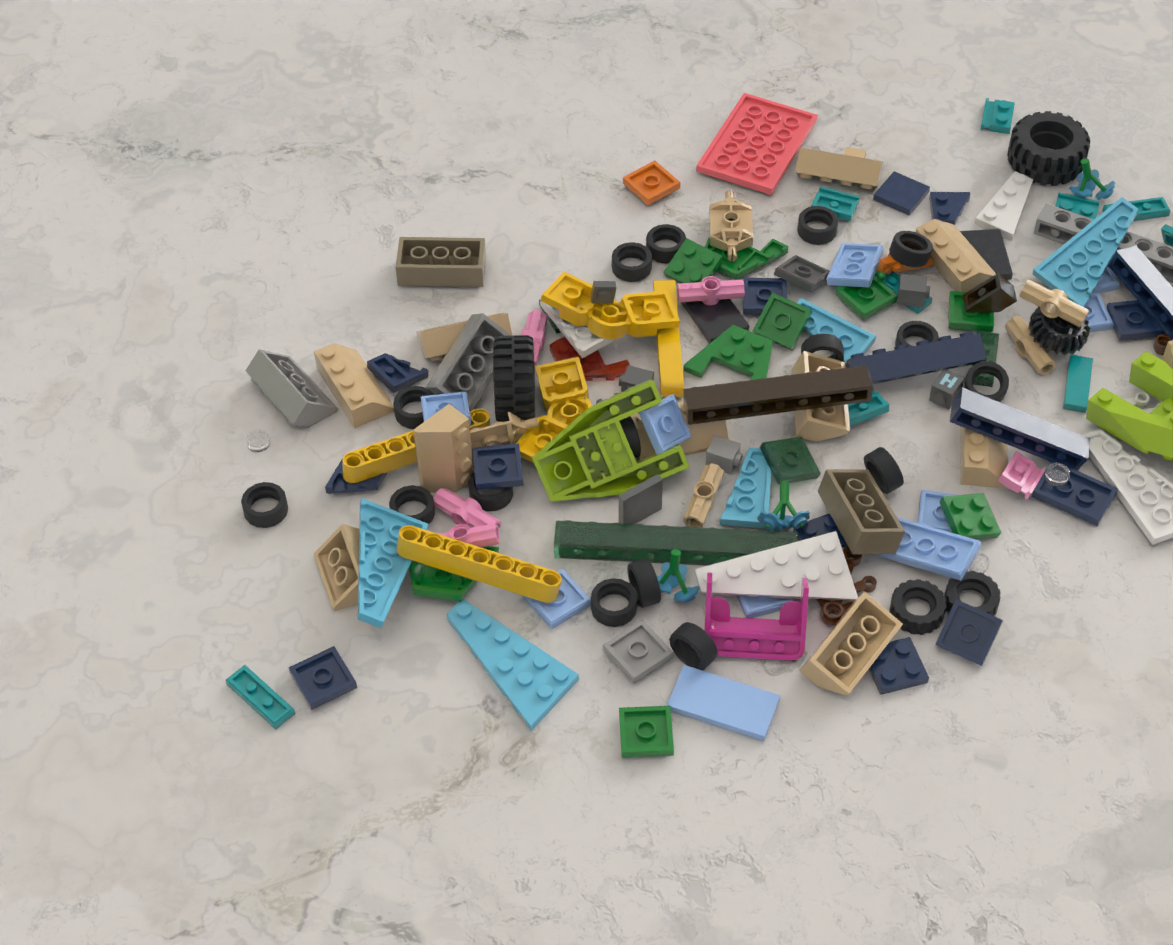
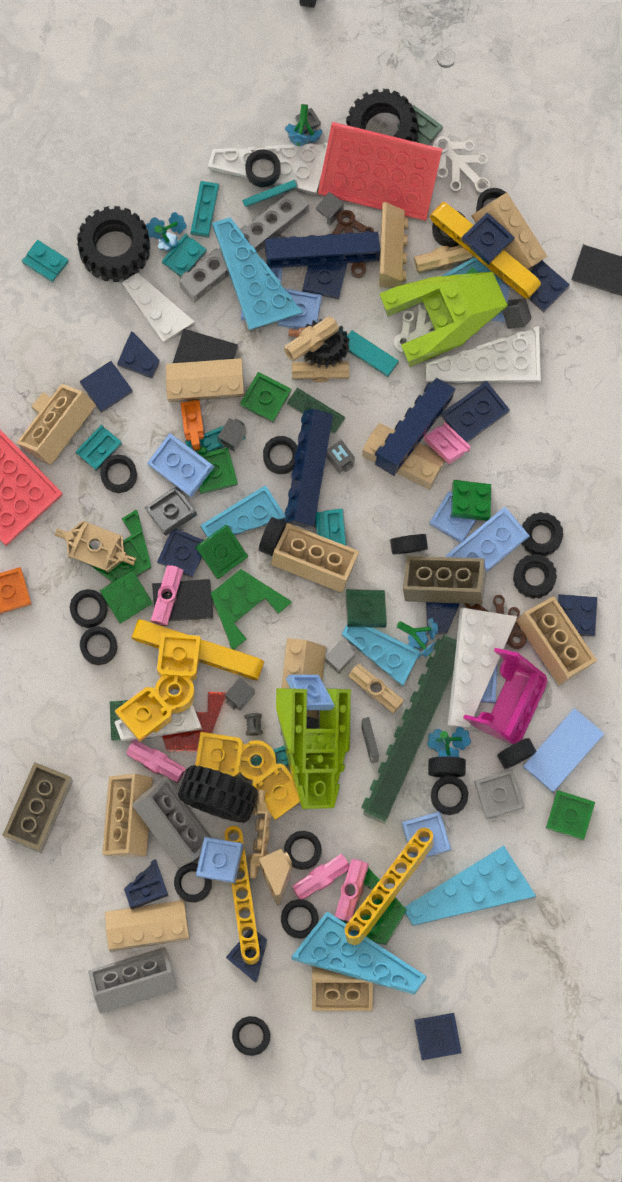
camera: 70 degrees left, 25 degrees up
(260, 697) = (434, 1089): teal tile -> none
(497, 466) = (296, 837): dark blue plate -> none
(603, 292) = (160, 688): dark grey plate -> none
(777, 394) = (318, 594): dark brown brick -> none
(911, 249) = (186, 403): black tyre -> none
(969, 632) = (574, 552): dark blue plate -> none
(989, 368) = (364, 424): black tyre -> none
(990, 296) = (266, 378): dark brown slope -> none
(1057, 474) = (459, 418): clear tile -> none

